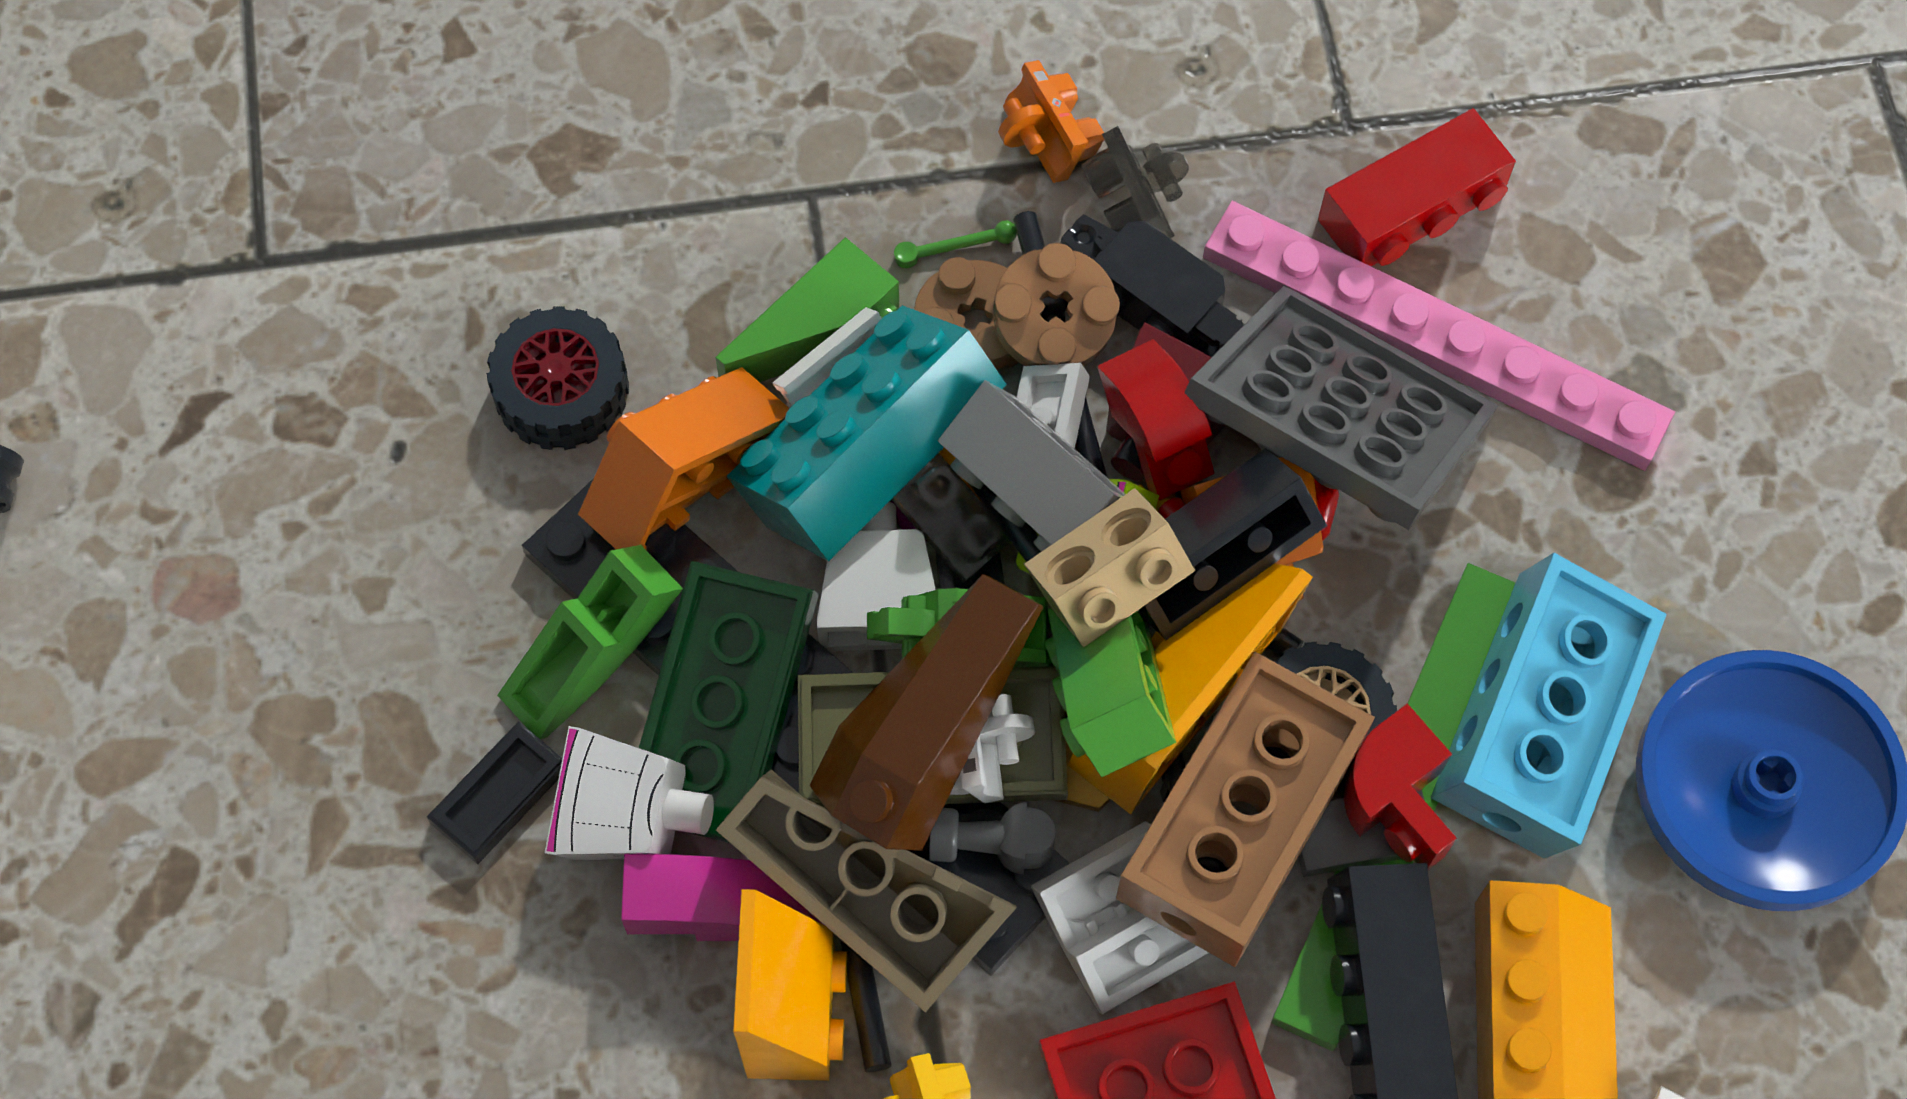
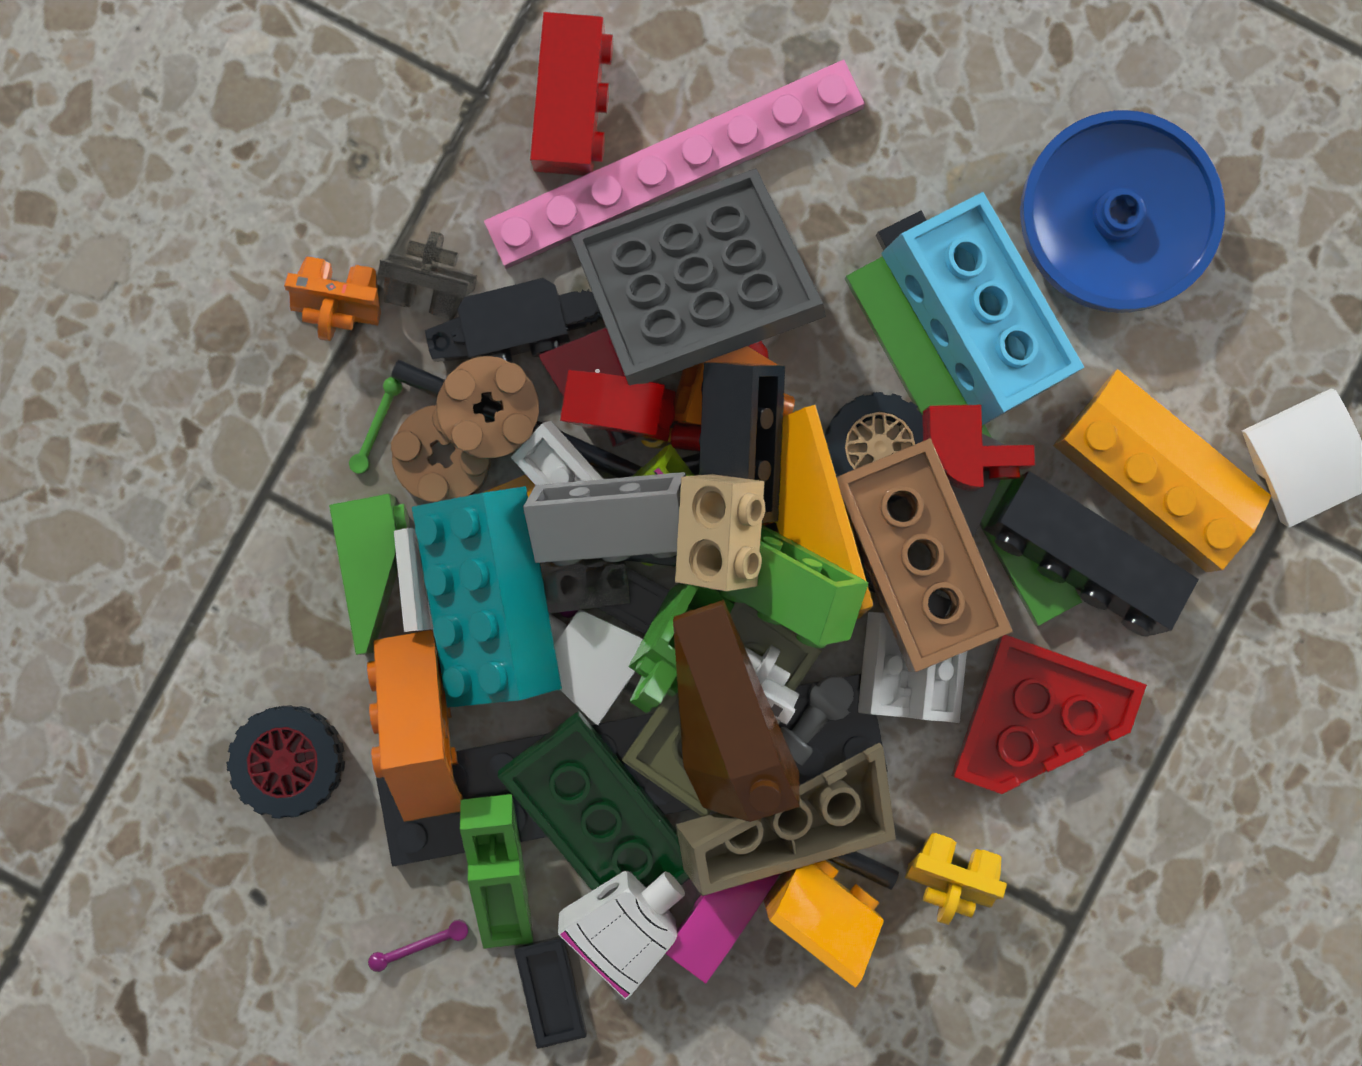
camera: 50 degrees left, 20 degrees up
(498, 656) = (457, 931): none -> magenta hinge

